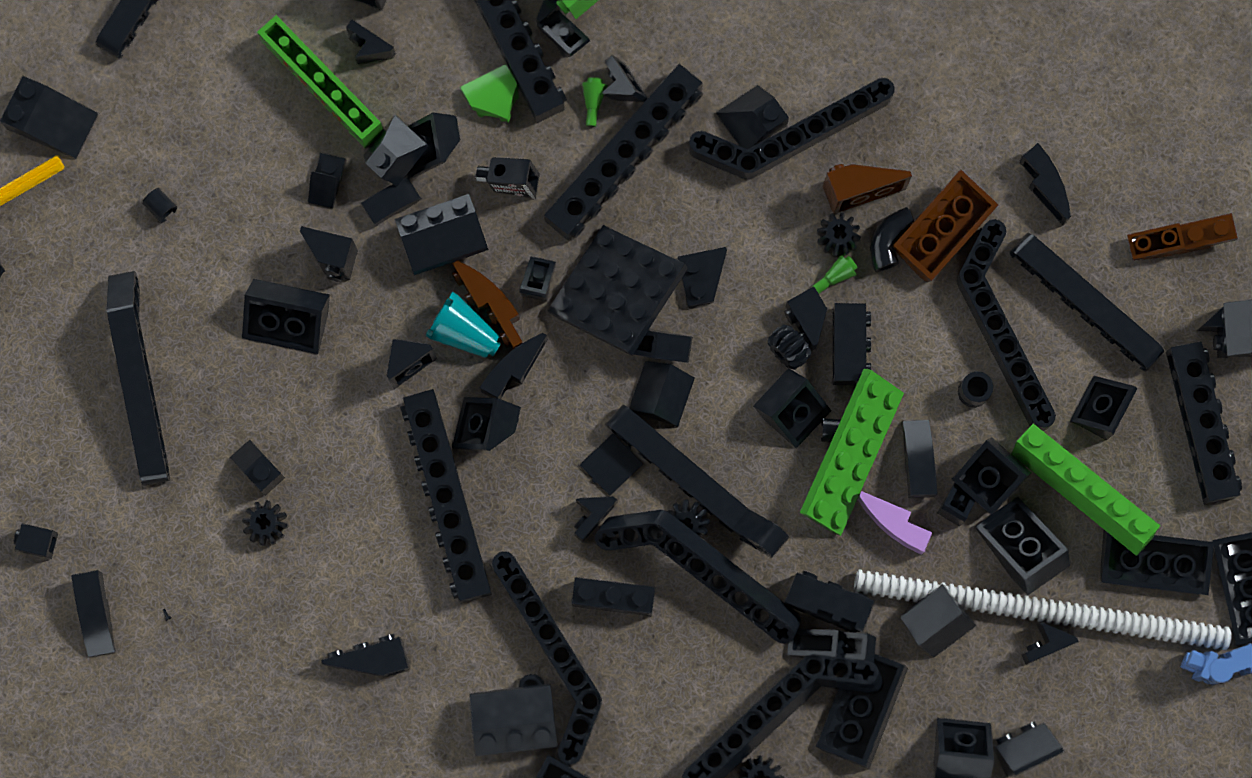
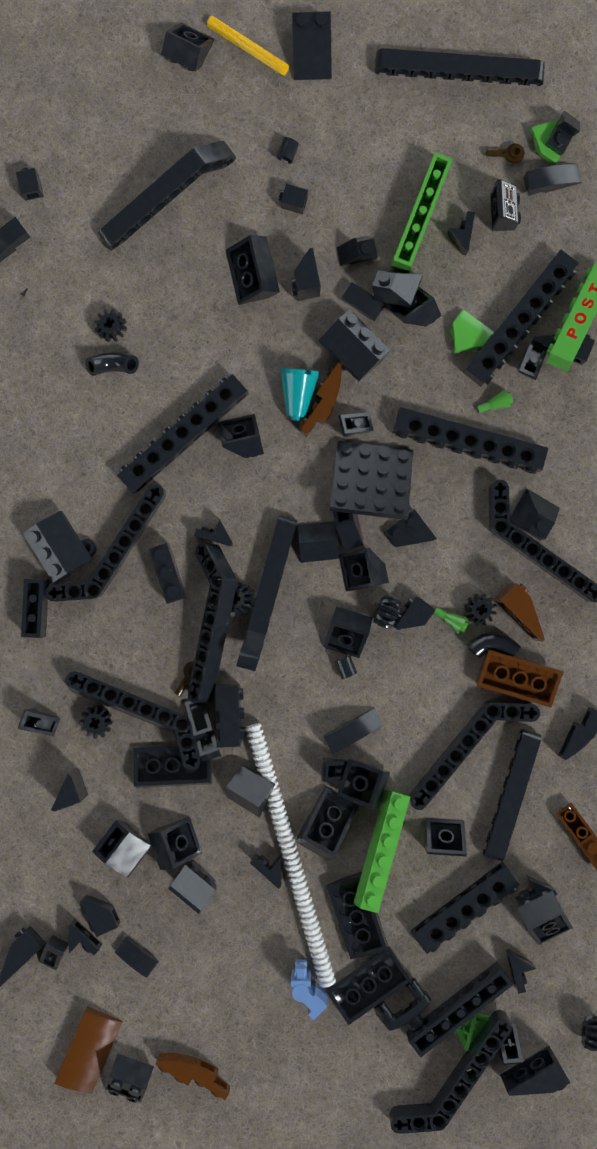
camera: 65 degrees right, 10 degrees up
(223, 225) = (293, 198): none -> black brick
(257, 467) = (143, 302): black slope -> none
(312, 543) = (111, 362): none -> black cylinder
(377, 659) = (55, 439): black slope -> none
(407, 360) = (257, 363): black slope -> none
(513, 367) = (289, 436): black slope -> none
(514, 178) = (416, 372): black torso -> none
(611, 464) = (255, 531): black piece -> none
(625, 85) = (517, 418): black slope -> none
(722, 353) = (362, 569): none -> black slope
(751, 631) = (187, 671): none -> dark brown plate
(850, 342) = (409, 651): black brick -> none
(852, 452) = (336, 685): bright green plate -> none
(894, 522) = (302, 734): lavender slope -> none
(975, 389) = (416, 747): black piece -> none

